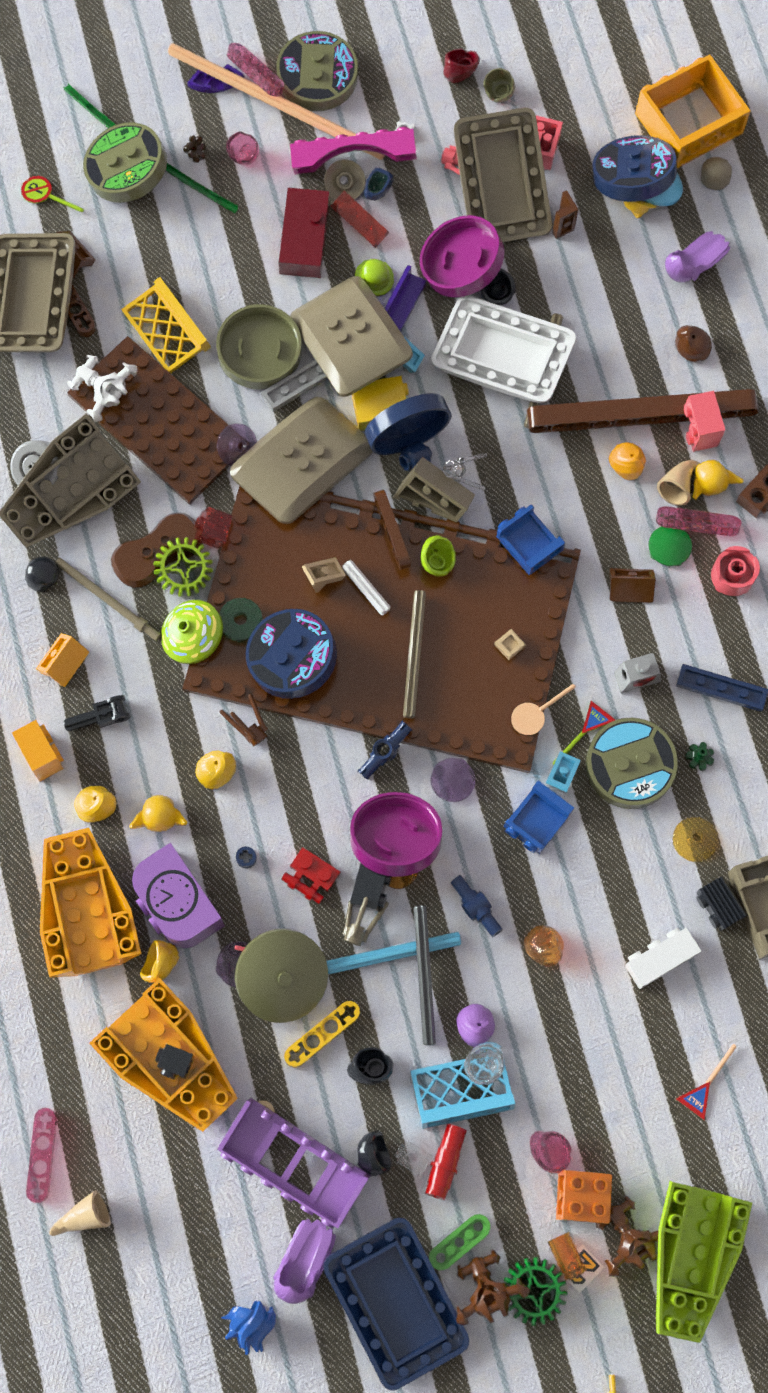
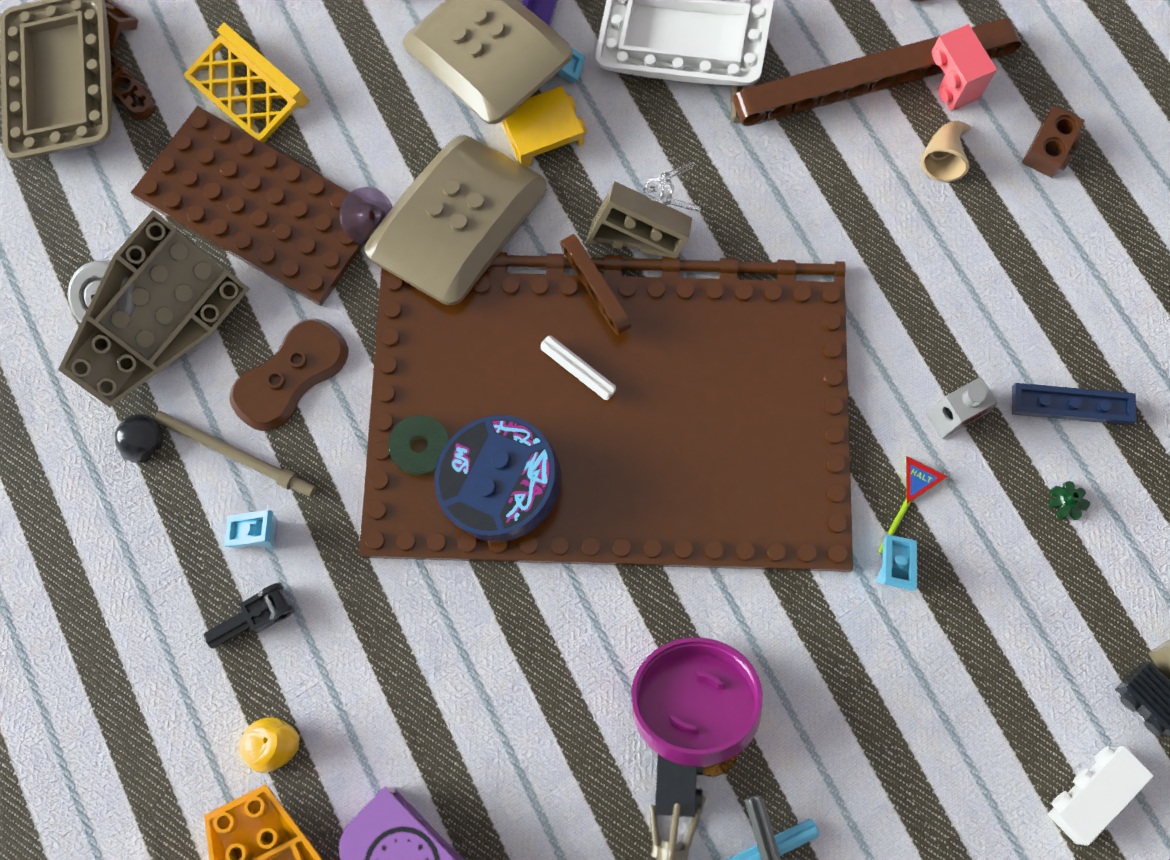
camera: 10 degrees left, 0 degrees up
(36, 748) = (173, 687): light orange brick -> none
(63, 659) = (188, 549): light orange panel -> none
(107, 388) = (180, 175): white piece -> none
(110, 654) = (251, 530): none -> medium azure slope
(158, 815) = (360, 741): yellow piece -> none
(174, 570) = (314, 395): lime gear -> none
(198, 638) = (368, 480): lime dish -> none
(212, 527) = (356, 329): clear red head -> none
(215, 769) = (427, 658): yellow hair -> none
(251, 852) = (489, 784): dark blue bush -> none
(253, 734) = (470, 597): reddish brown plant -> none
(258, 346) = (370, 86): olive brick -> none
(293, 386) = (426, 126): light grey plate -> none
(313, 869) = (594, 772): red plate -> none
(323, 572) = (517, 359): tan slope -> none
(376, 758) = (643, 597): dark blue pin -> none
(408, 422) = (586, 141): dark blue piece -> none
(412, 454) = (598, 183): dark blue head -> none
(414, 654) = (662, 445): dark tan axle -> none
(438, 556) = (664, 306): lime hair -> none
(452, 779) = (752, 604): clear purple dish -> none
(476, 906) = (828, 776): dark blue pin -> none
(510, 644) = (785, 404): tan tile -> none
(529, 540) = (777, 262): blue panel -> none
(529, 718) = (834, 497): light nougat piece -> none
(538, 818) = (880, 632): blue panel -> none
(544, 945) = (926, 809): clear orange hair -> none
(627, 460) = (874, 137): light orange hair -> none
(631, 763) = (984, 530): brick -> none
(632, 585) = (922, 293): reddish brown panel -> none
(667, 516) = (1015, 194): clear pink beam -> none
(670, 546) = (955, 234): green dish -> none
(687, 846) = (1079, 617): clear yellow dish -> none
(713, 478) = (989, 138): yellow piece -> none
(745, 574) = (1050, 249): coral brick -> none

